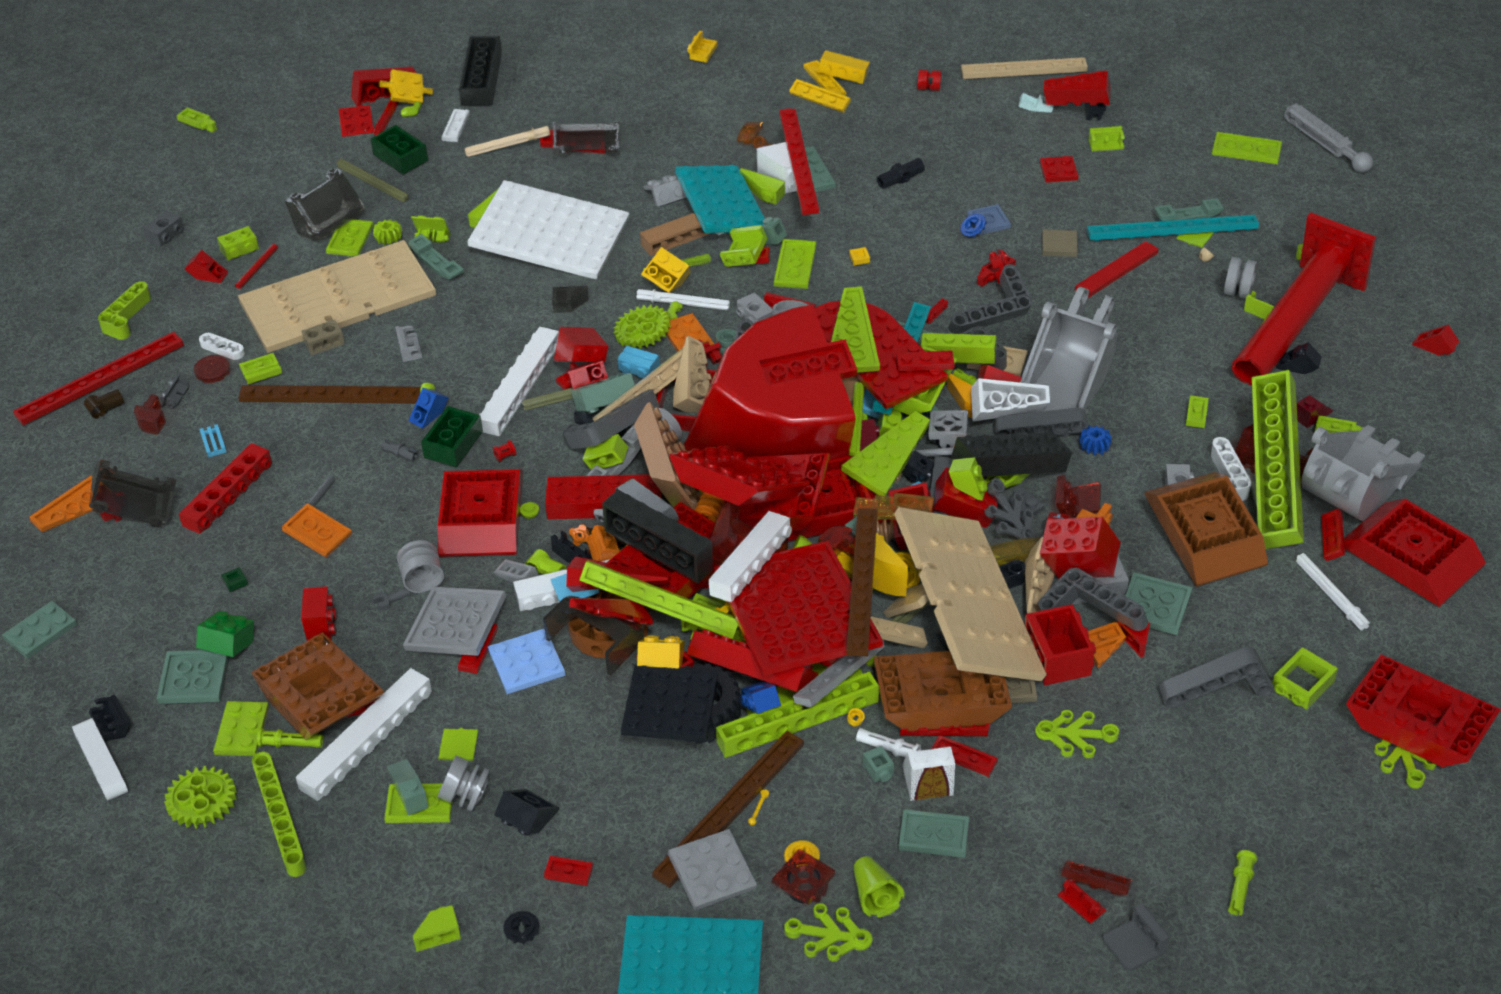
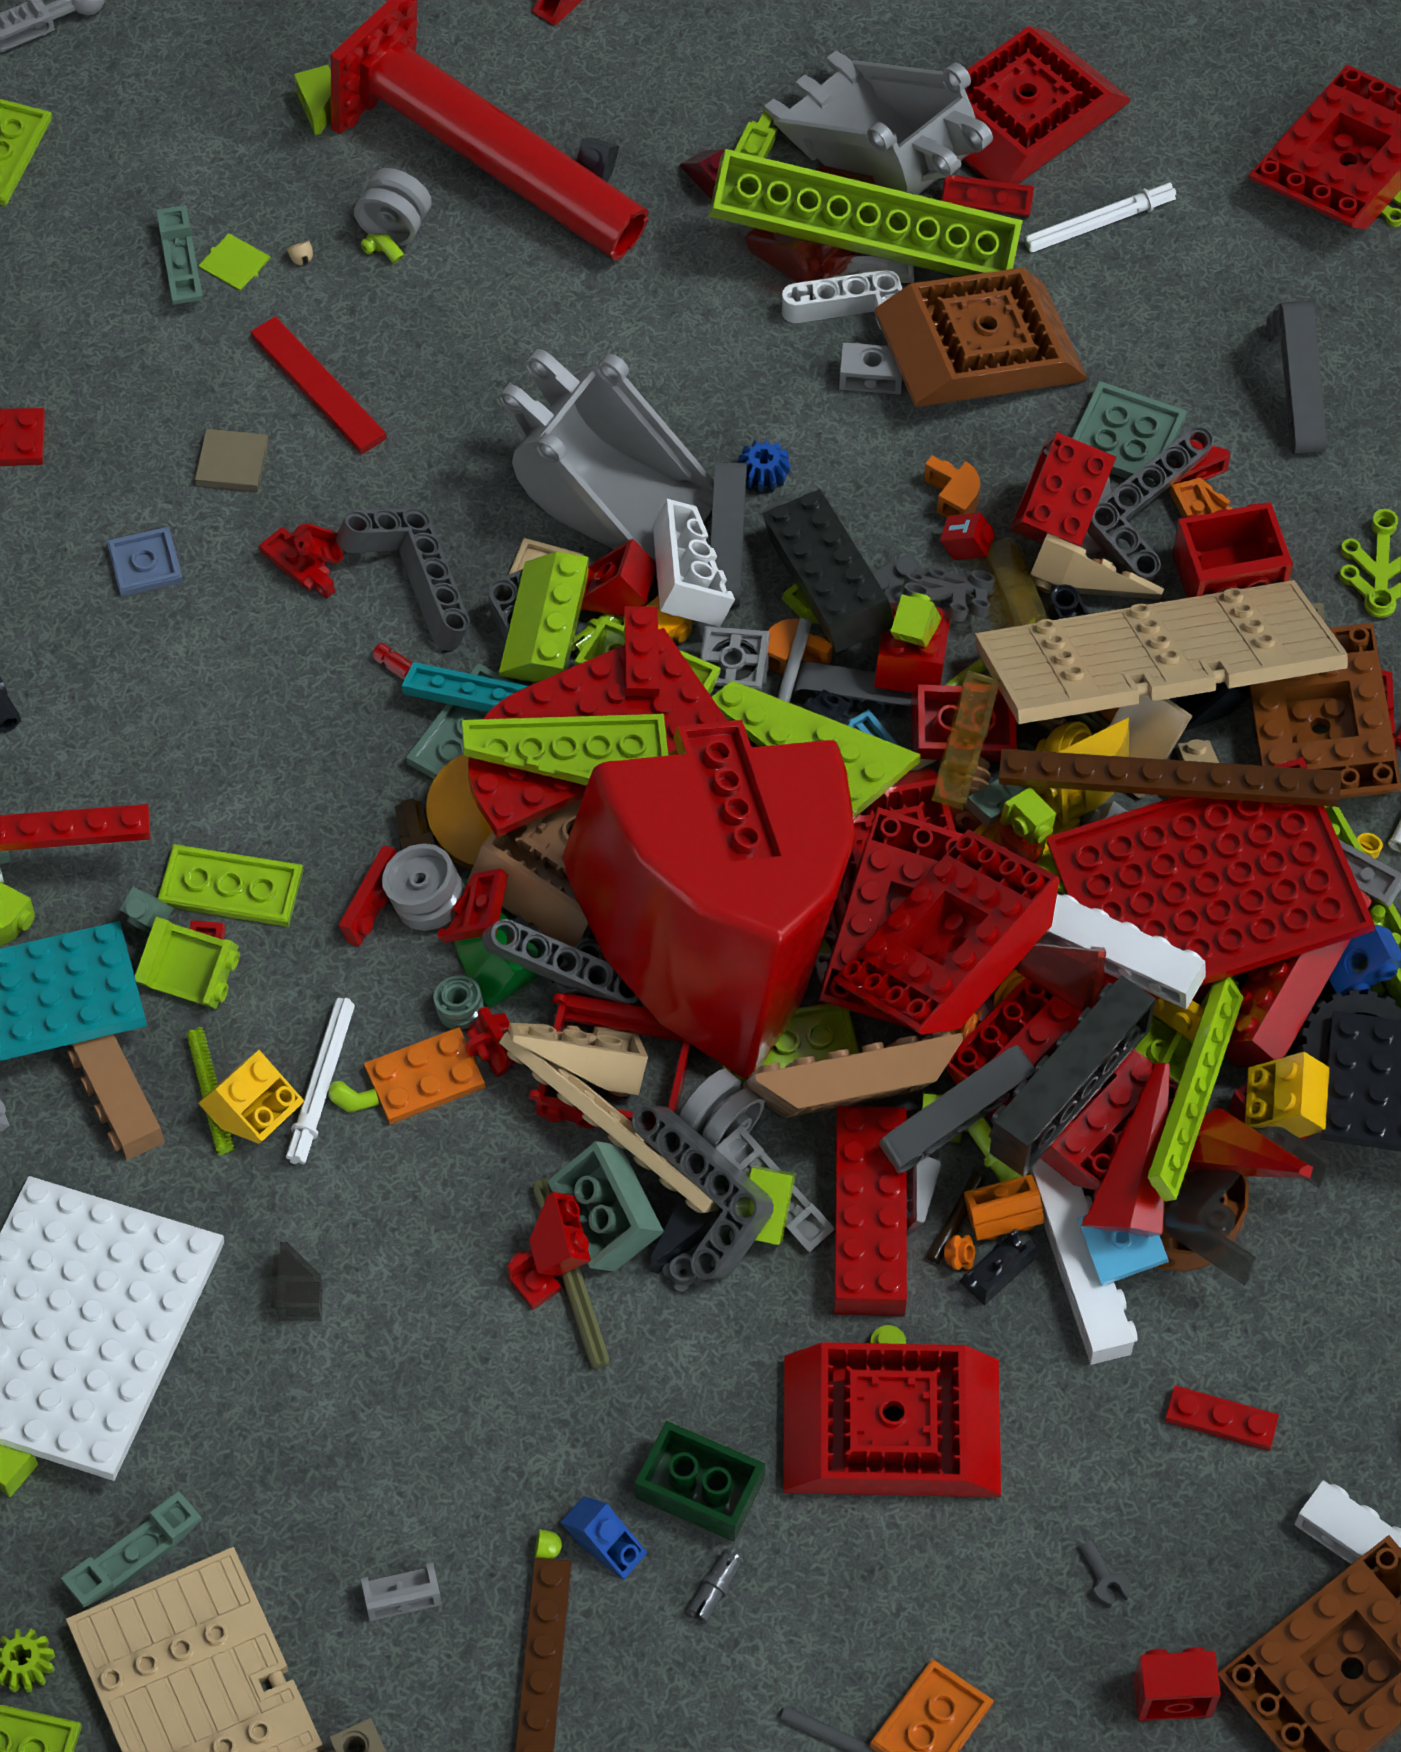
camera: 90 degrees left, 15 degrees up
(420, 566) = (1061, 1511): light grey wheel -> none
(432, 228) = (42, 1551): lime hinge -> none
(454, 621) = (1177, 1450): light grey plate -> none
(498, 451) = (732, 1390): red bush -> none
(519, 381) = (536, 1369): white brick -> none
(526, 661) = (1251, 1337): light blue plate -> none
(527, 570) = (1059, 1335): light grey slope -> none
(544, 563) = (1031, 1314): lime piece -> none
(580, 345) = (499, 1237): red slope -> none
(638, 362) = (505, 1155): medium azure brick -> none
(642, 326) = (432, 1152): lime gear -> none
(753, 308) = (387, 938): light grey brick -> none
(840, 532) = (1029, 816): none -> lime brick
(859, 256) = (231, 774): yellow plate -> none
(975, 219) = (179, 568): blue gear -> none
(1073, 499) = (905, 499): clear red bracket -> none
(1170, 227) = (220, 290): teal plate -> none
(1197, 411) = (701, 321): lime plate -> none
(1219, 285) = (382, 243): none -> lime arm
(1256, 306) = (457, 194): lime hinge -> none
(1312, 664) = (1271, 245): lime window -> none

